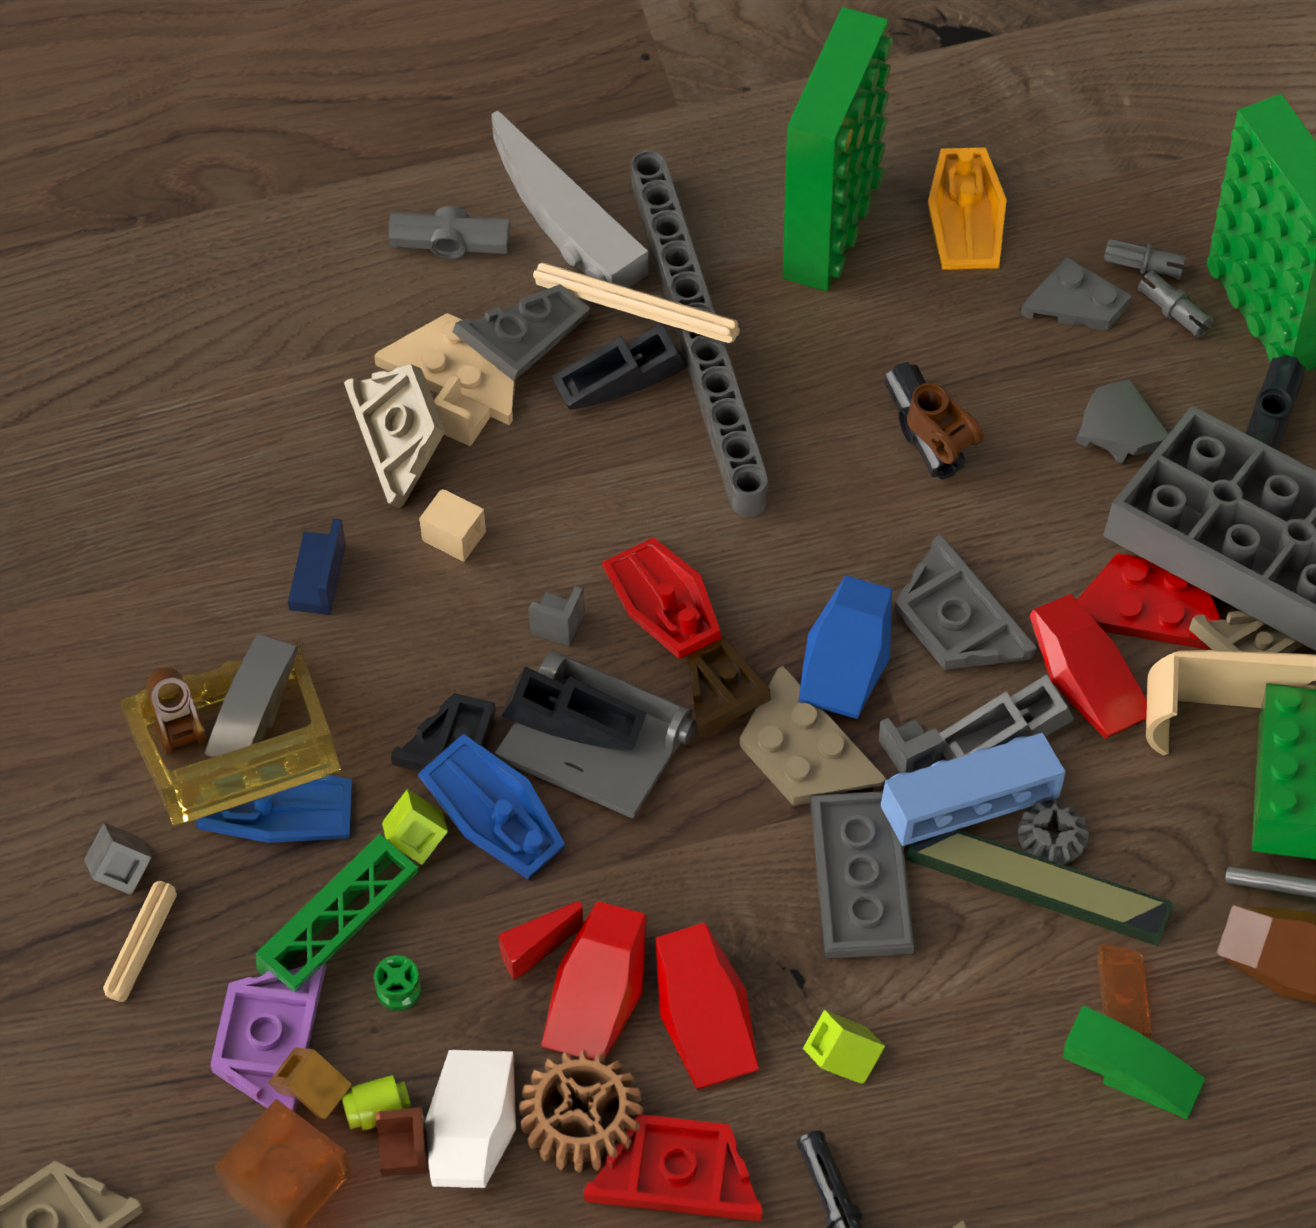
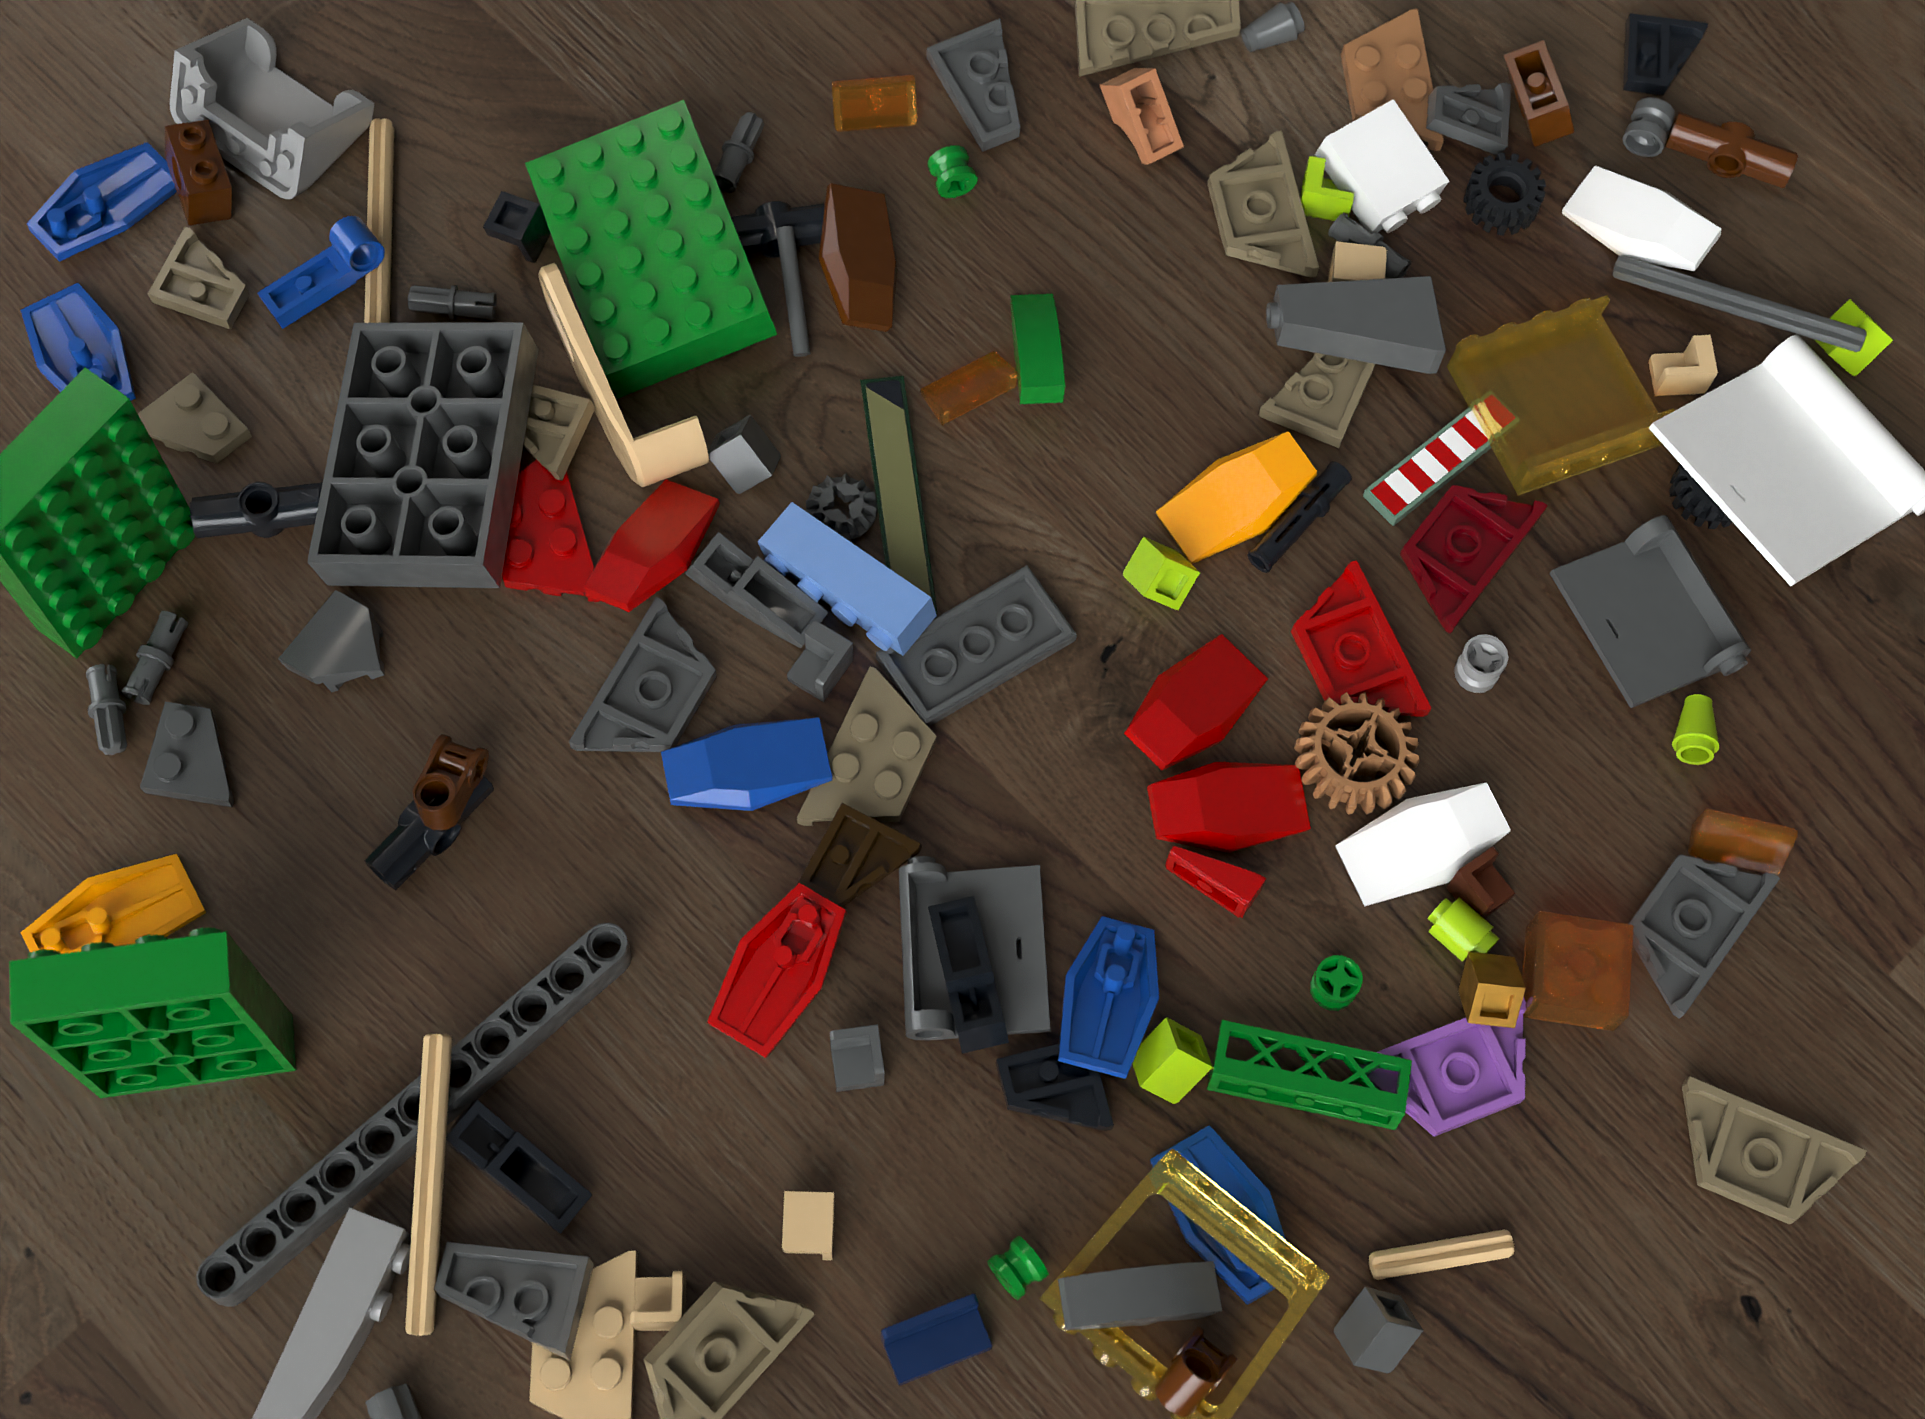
camera: 125 degrees left, 10 degrees up
(330, 642) = (1017, 1267): none -> green wheel
(883, 1151) = (1237, 497): none -> light orange piece
(1143, 776) = (744, 454): none -> dark grey panel

